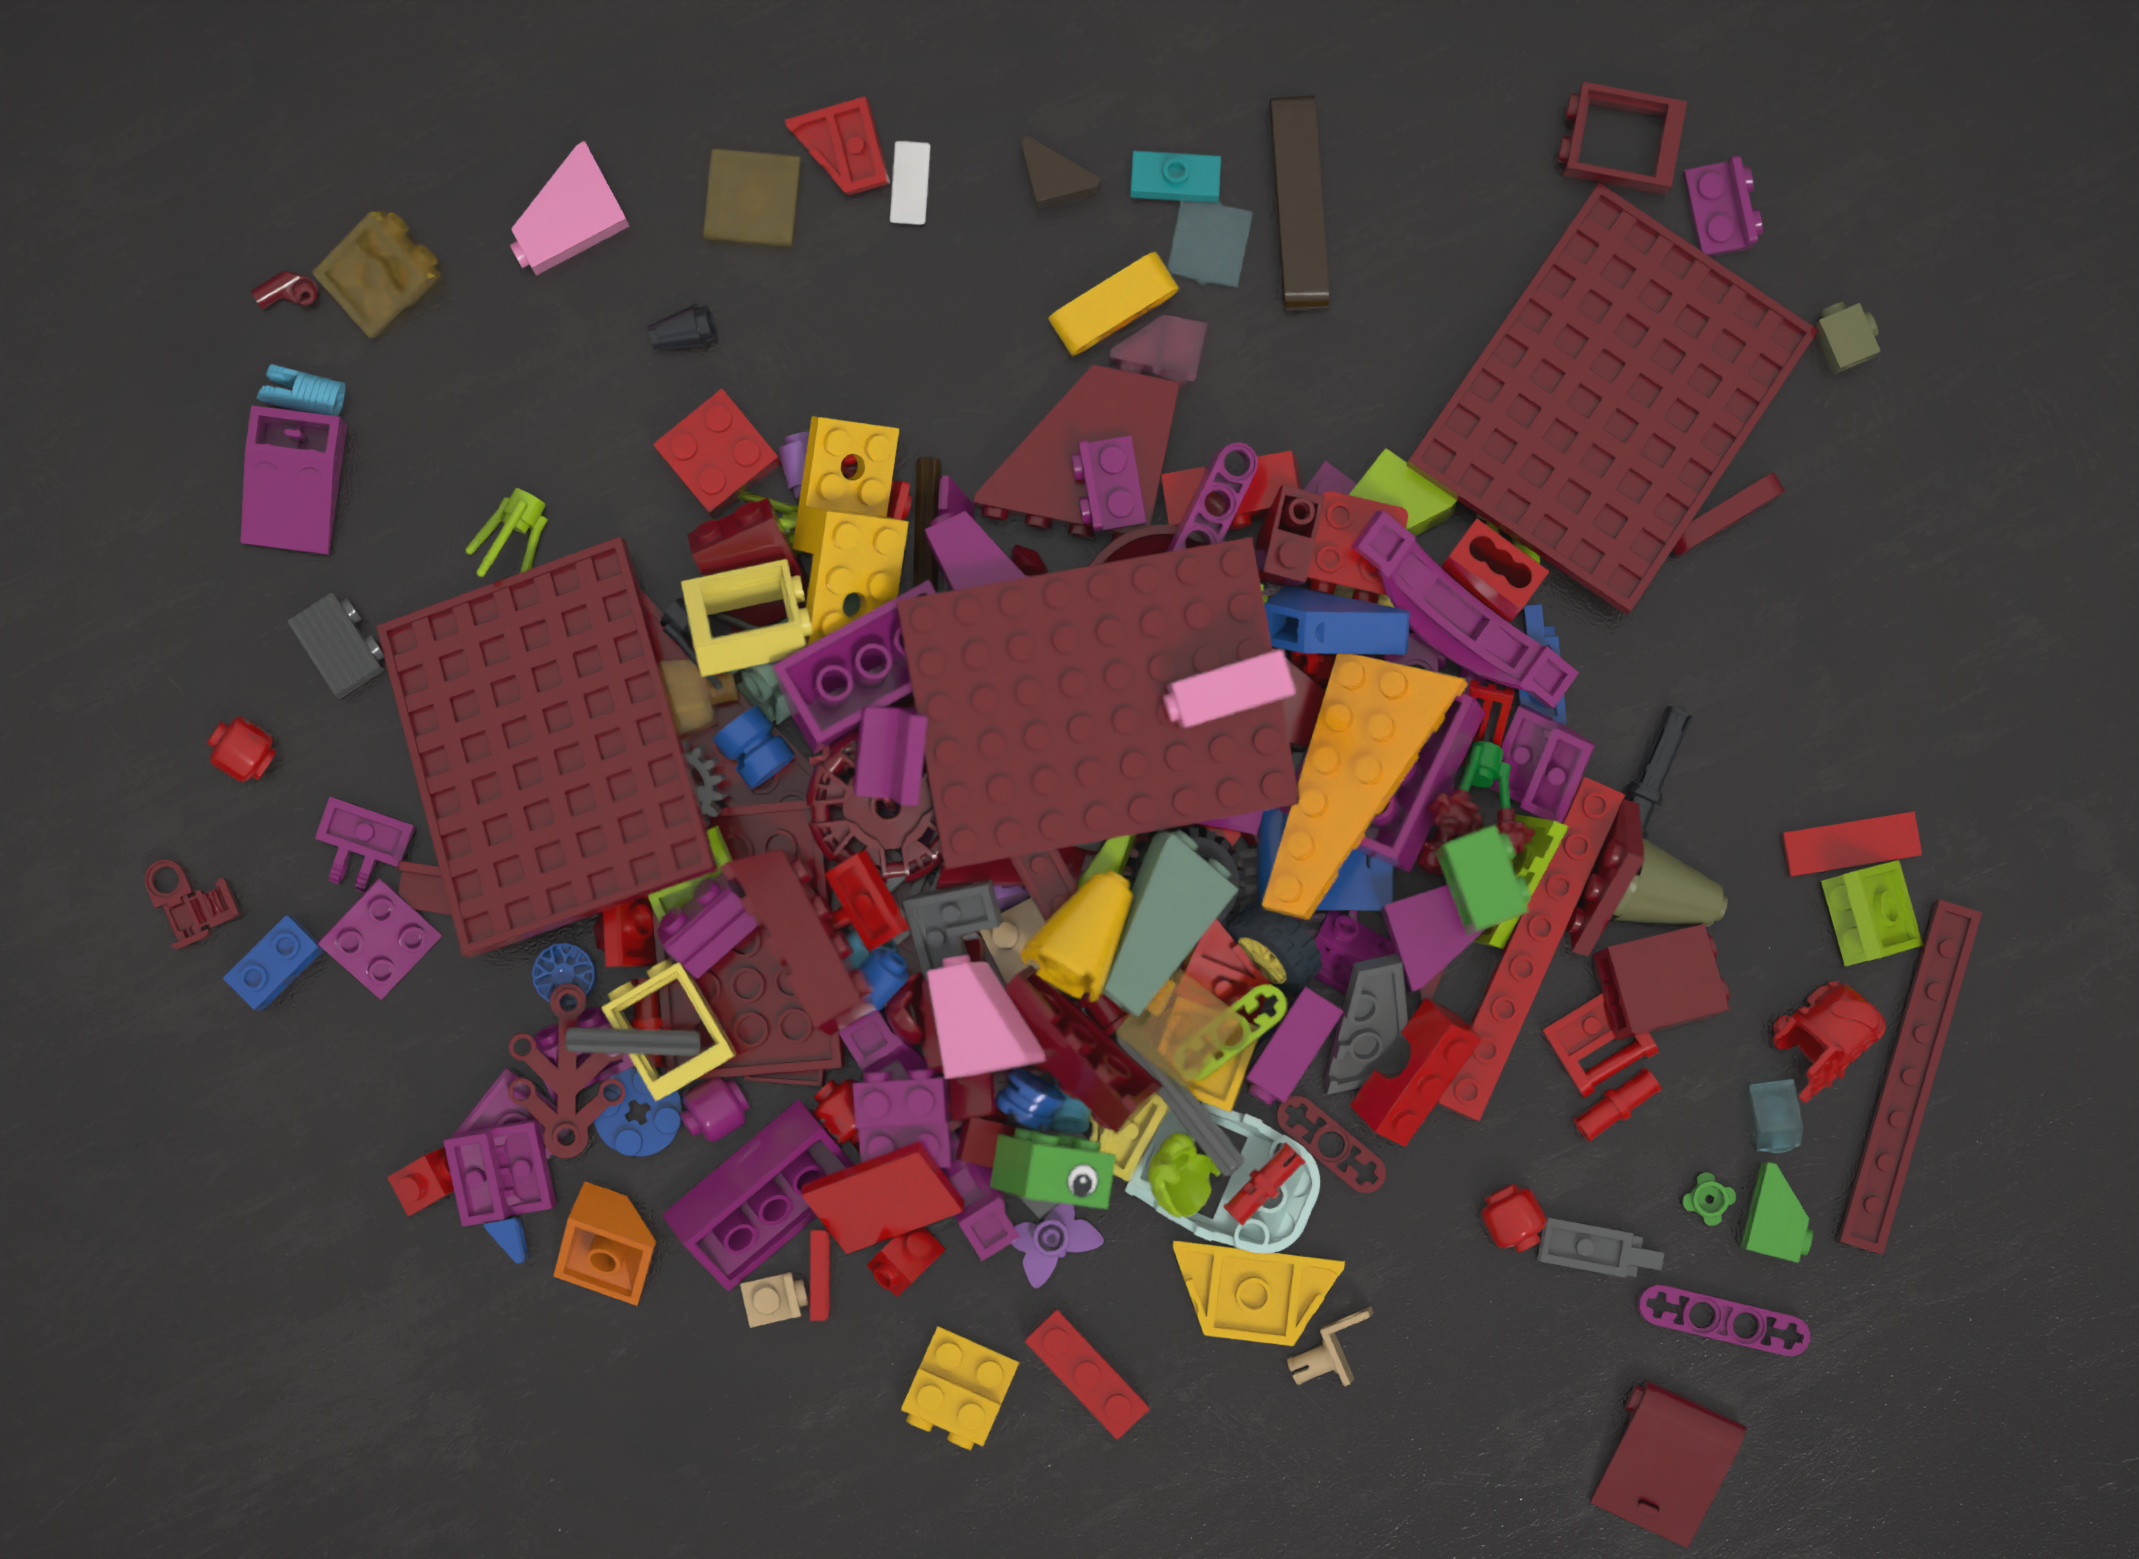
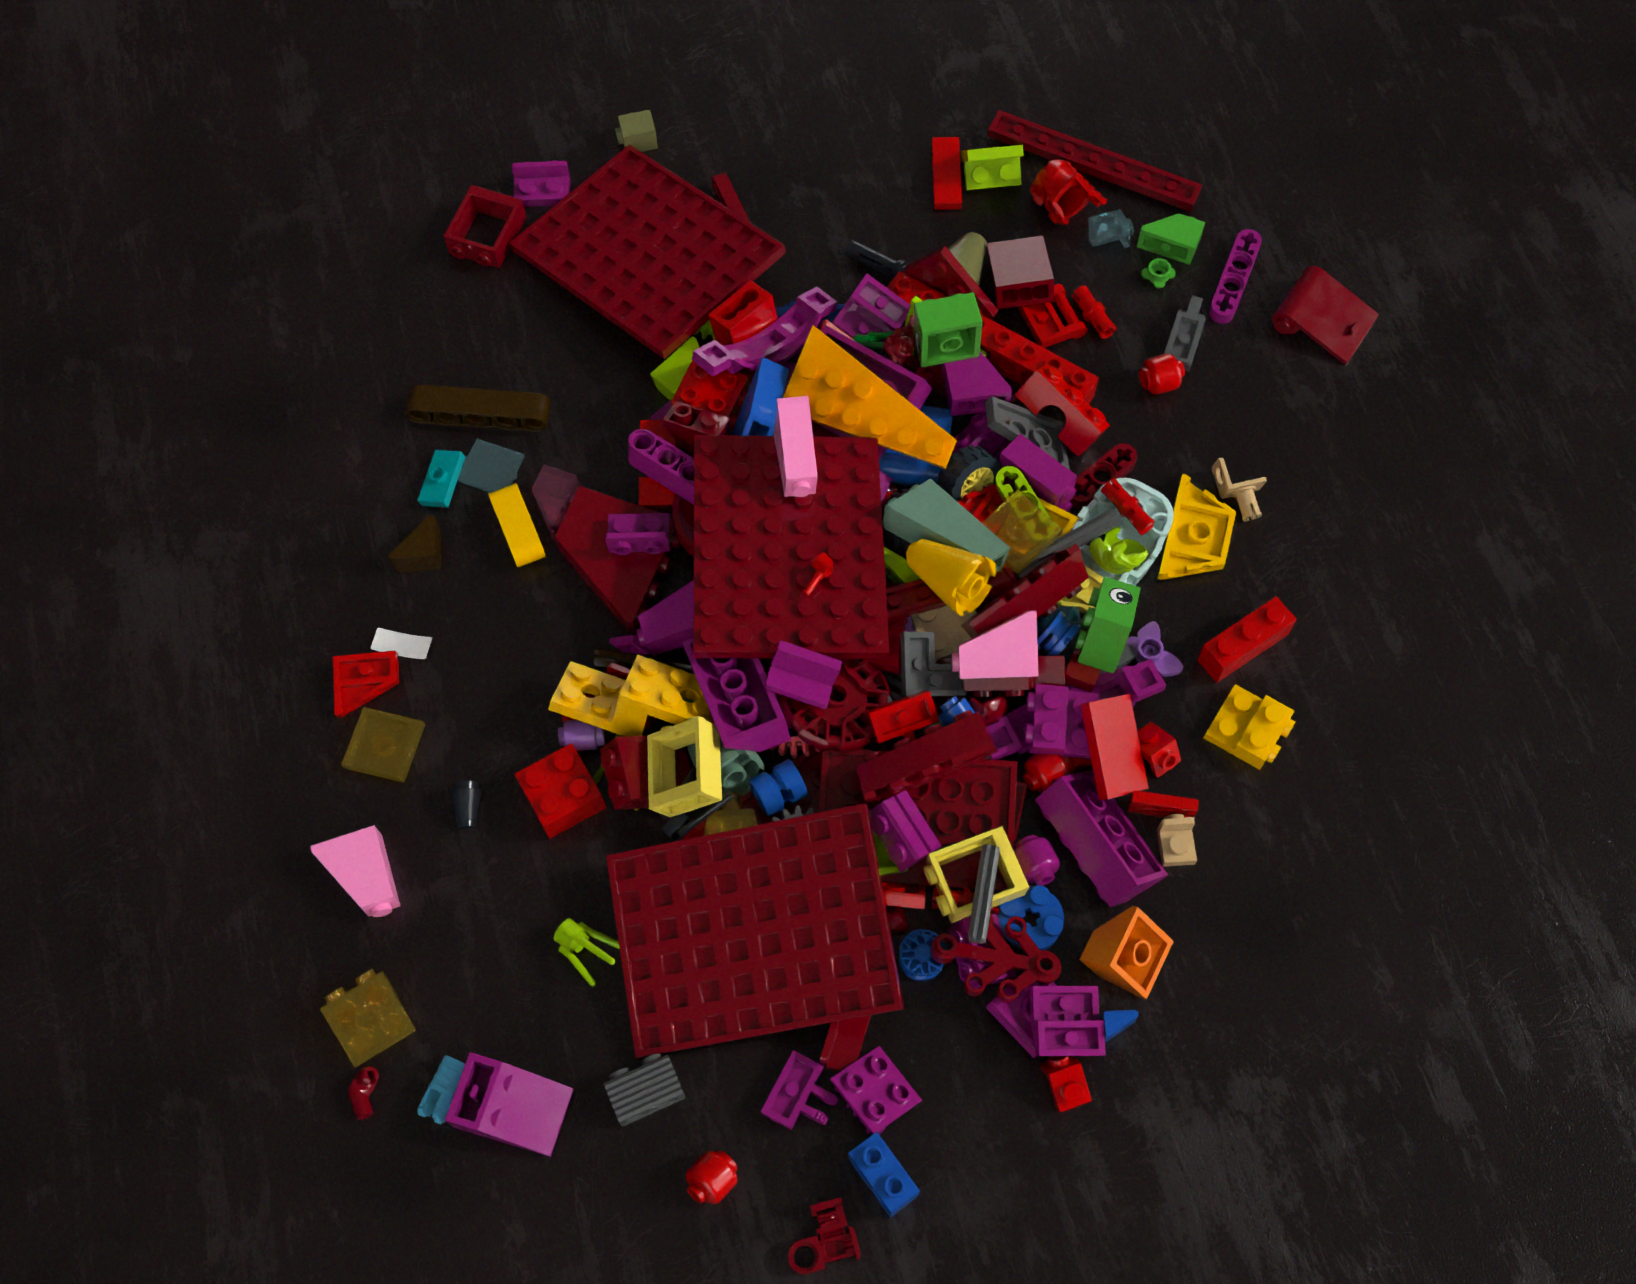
camera: 75 degrees left, 20 degrees down
(1055, 758) = (824, 568): none -> red hand

